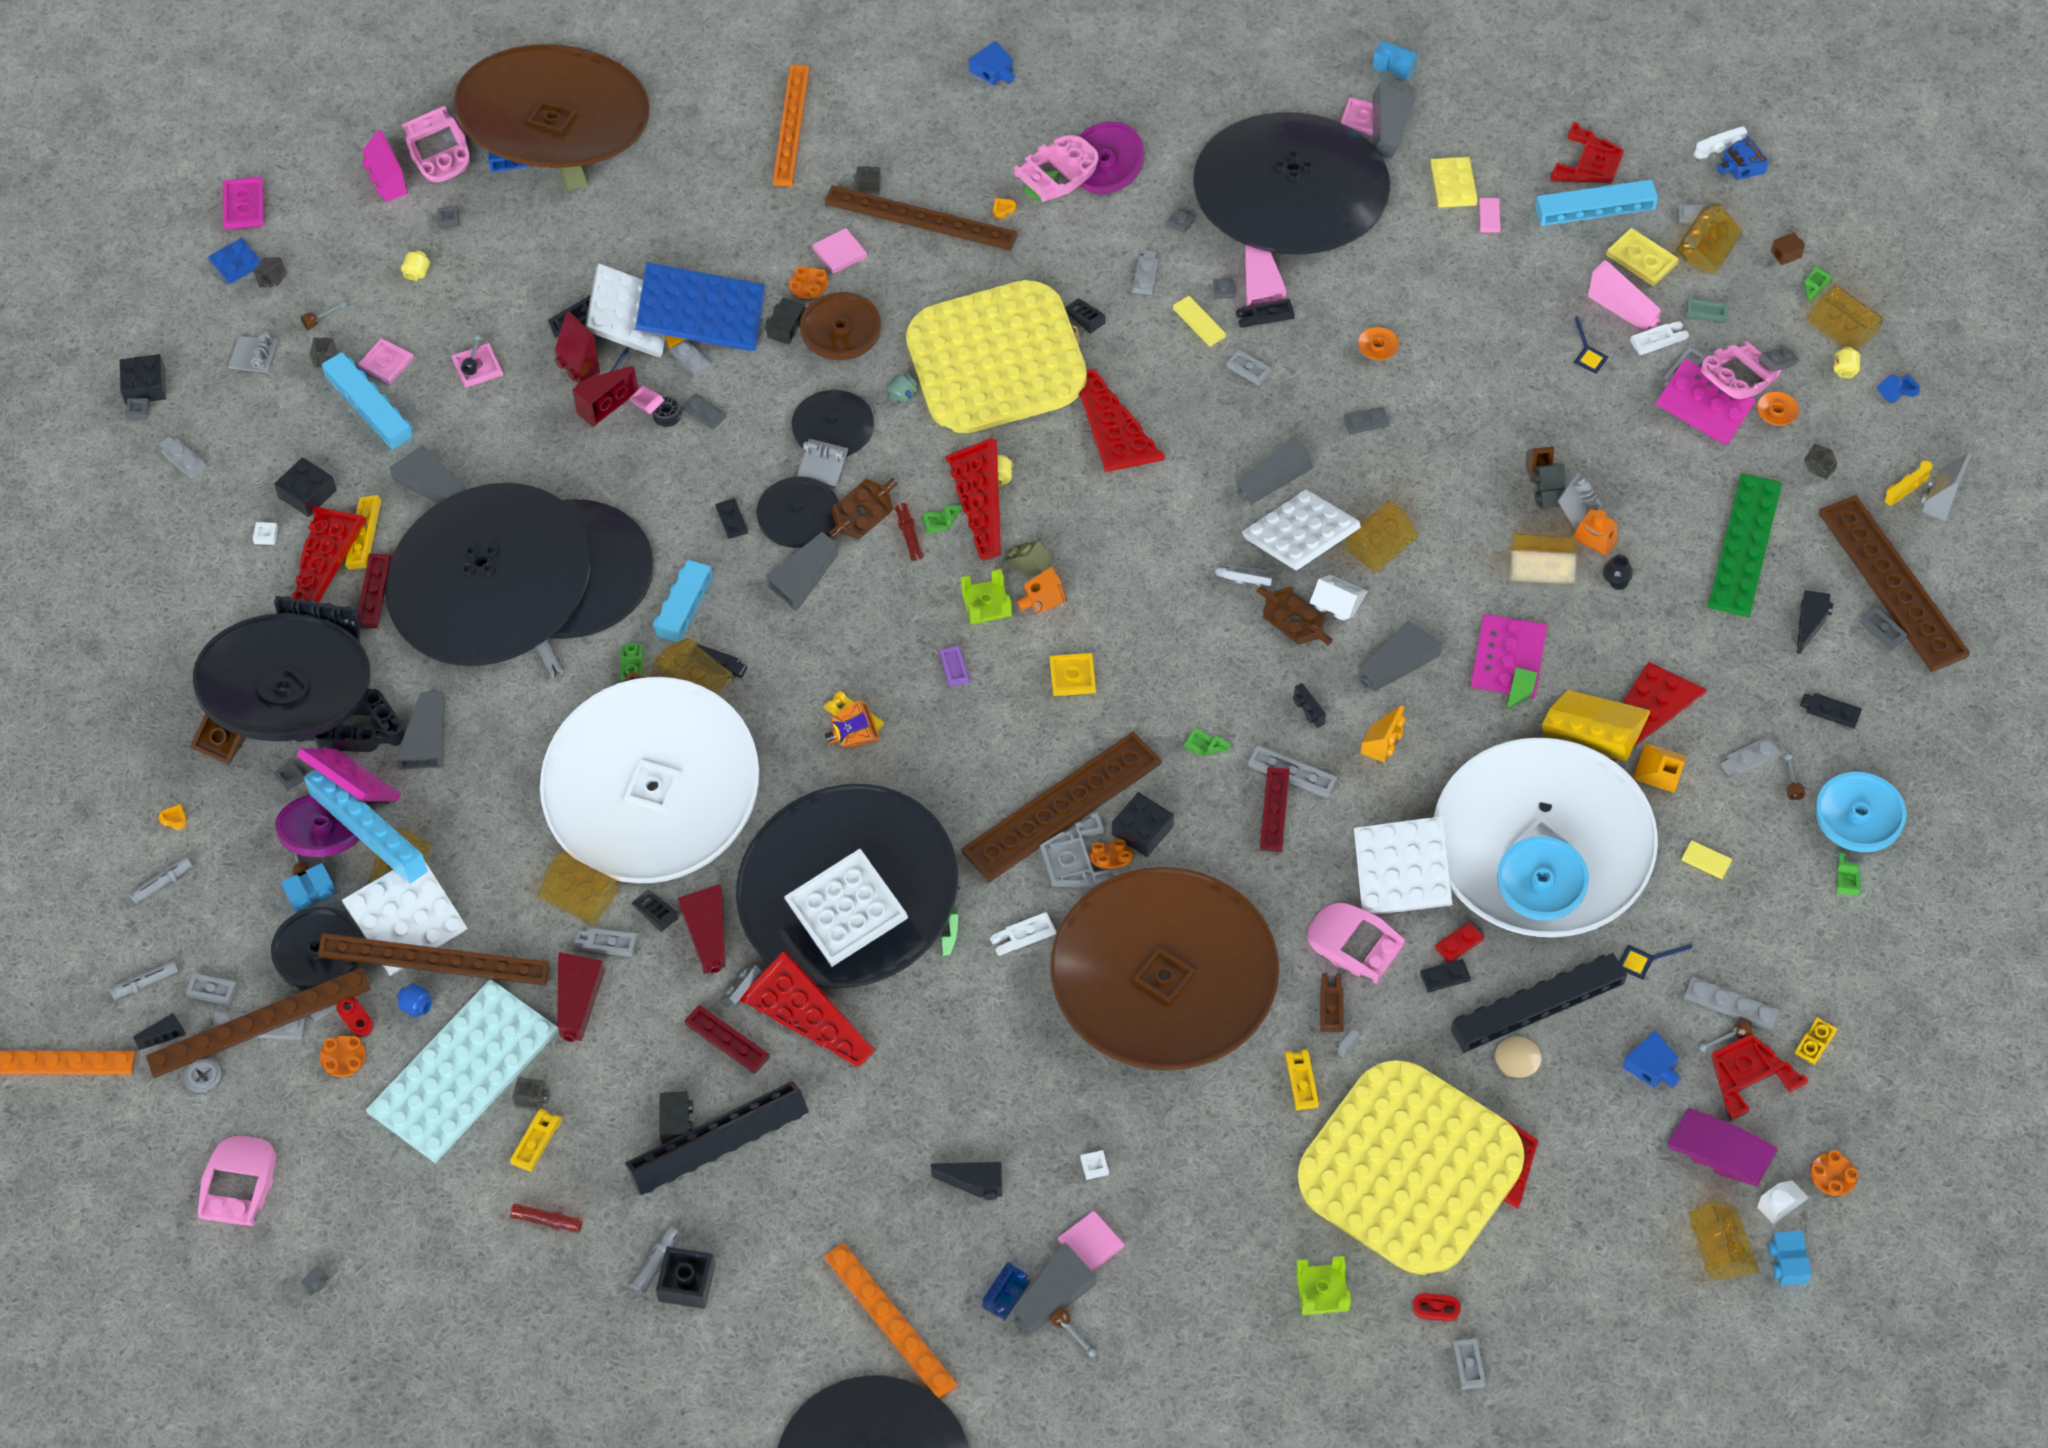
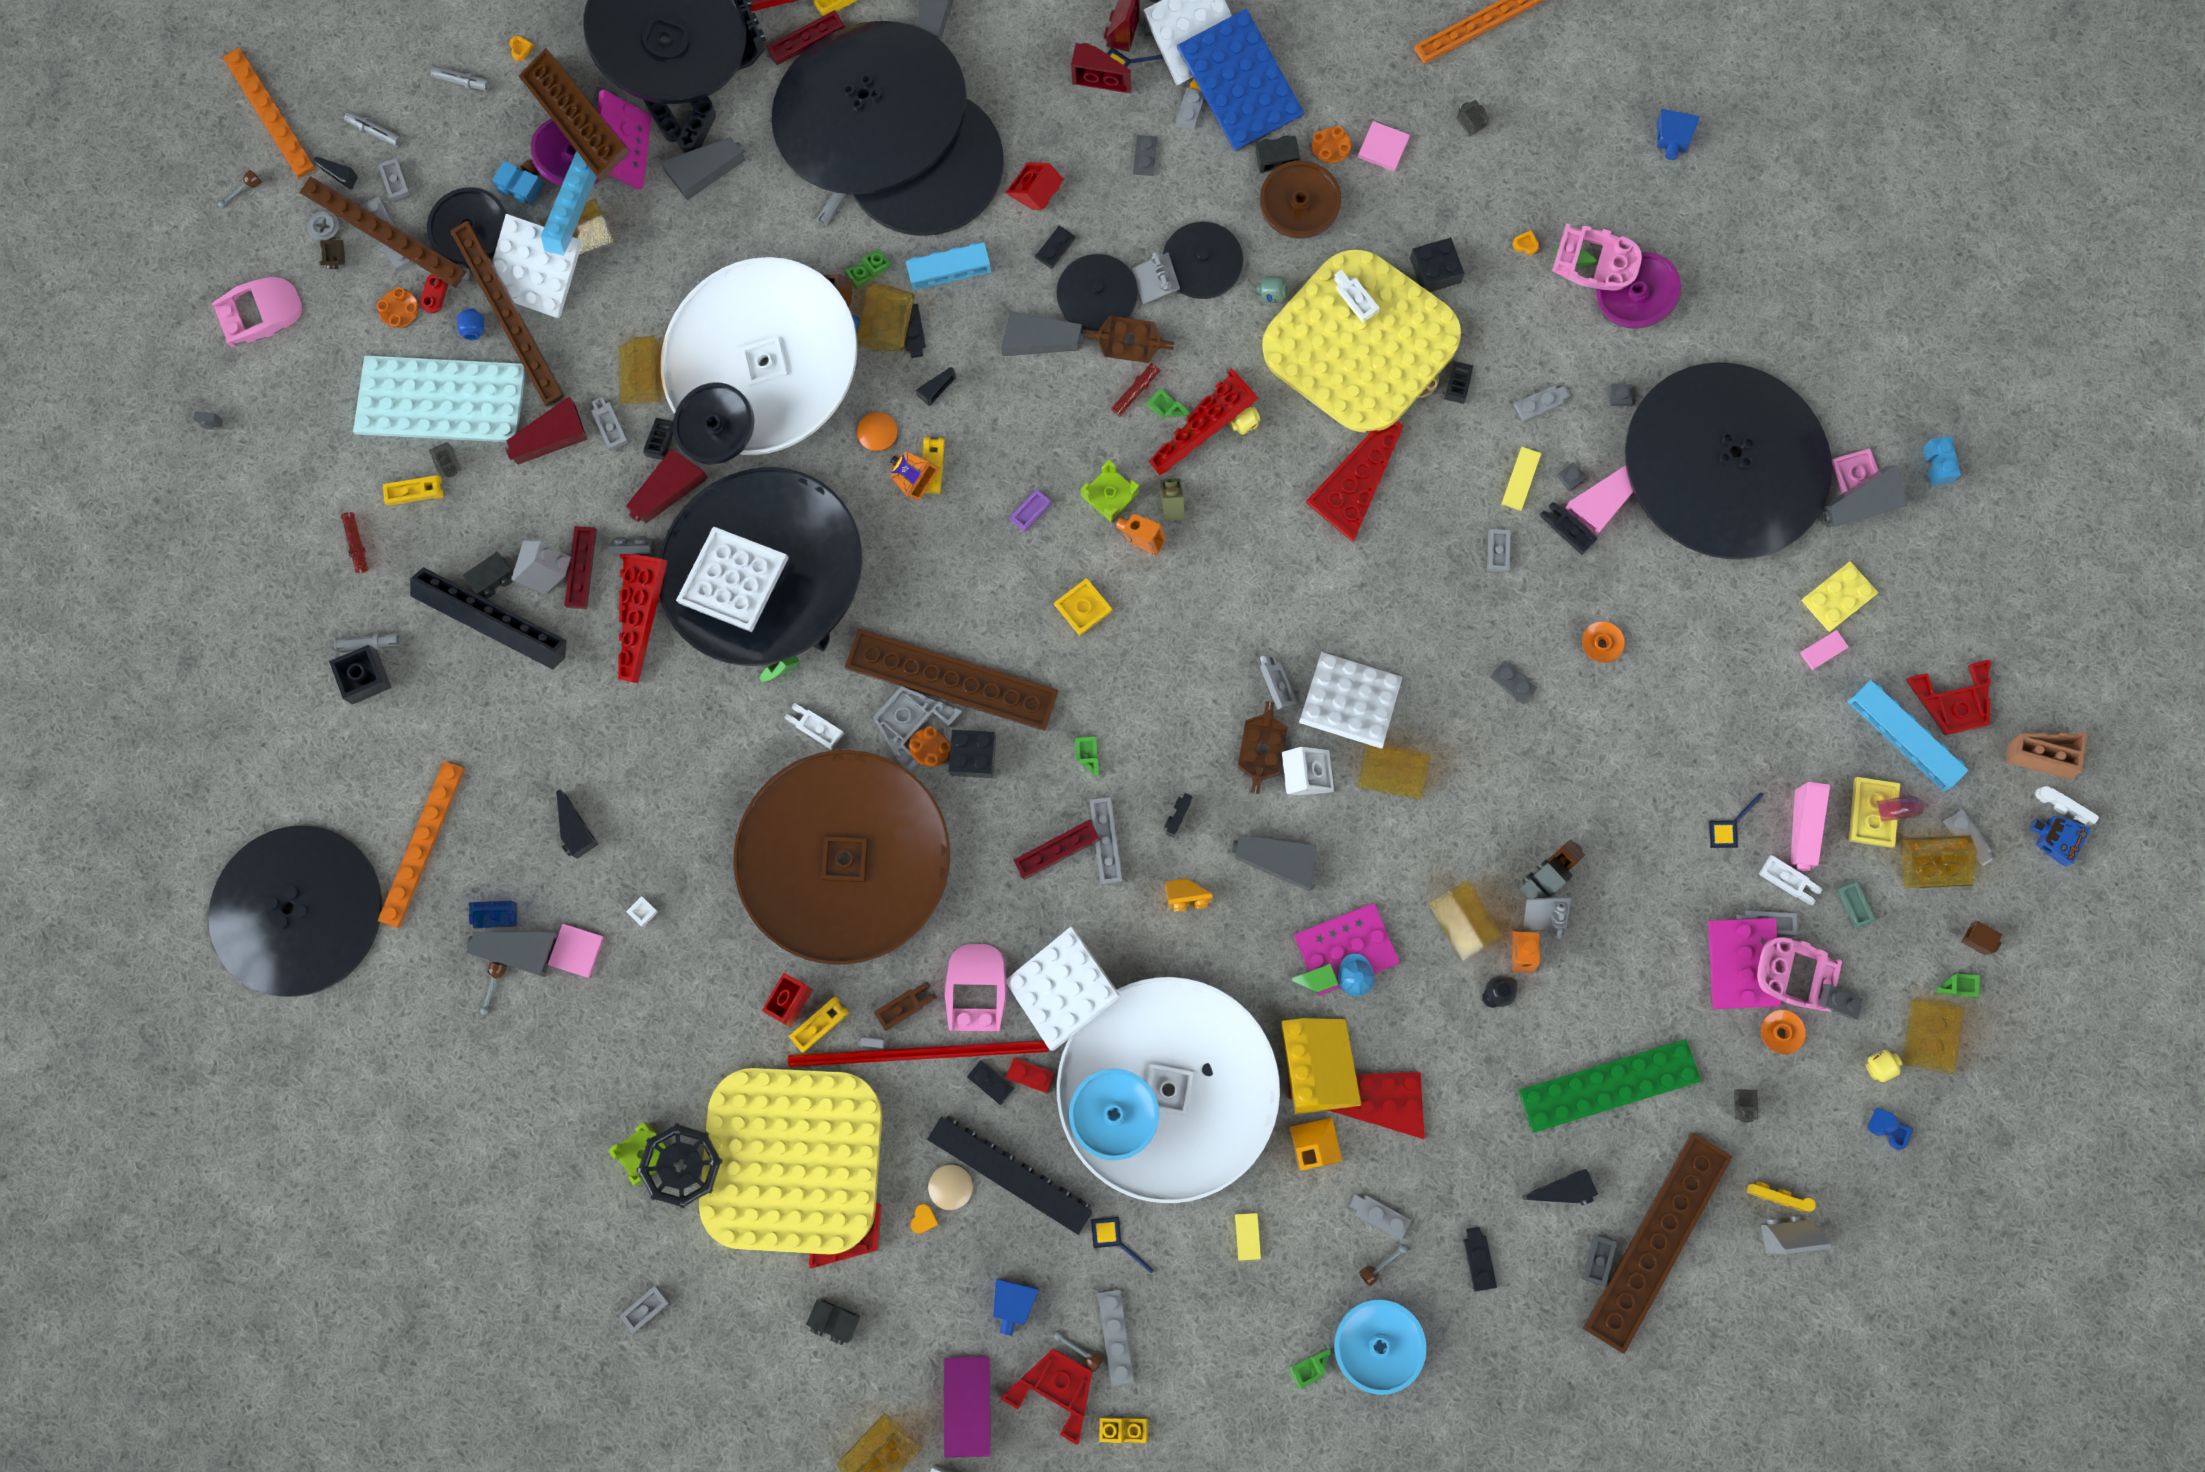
camera: 60 degrees right, 20 degrees up
(98, 1113) = (250, 179): none -> hinge
(239, 1081) = (332, 253): none -> dark brown bracket
(298, 787) = (574, 114): none -> reddish brown plate
(646, 399) = (1120, 104): bright pink tile -> none
(663, 499) = (1035, 185): none -> red slope
(672, 415) = (1119, 120): black wheel -> none
(688, 843) = (713, 423): none -> black dish
(704, 1061) = (540, 566): none -> light grey slope
(787, 678) = (935, 387): none -> black slope
(789, 739) = (877, 431): none -> orange dish
(921, 218) = (1465, 186): reddish brown plate -> none
(958, 333) = (1356, 296): none -> white hinge
(974, 270) = (1437, 265): none -> black brick
(1265, 1082) = (787, 1000): none -> red slope
(1275, 471) = (1399, 641): dark grey slope -> none
(1361, 1238) = (687, 1176): none -> black plate
(1379, 1018) = (917, 1053): none -> red axle
(1436, 1305) = (677, 1255): red plate -> none
(1533, 1094) = (923, 1220): none -> light orange tile
(1536, 658) = (1356, 975): none -> dark azure piece
(1580, 1211) = (833, 1321): none -> pearl dark grey brick
(1651, 237) = (1900, 808): none -> clear pink cylinder
(1673, 128) = (2051, 754): none -> nougat wedge

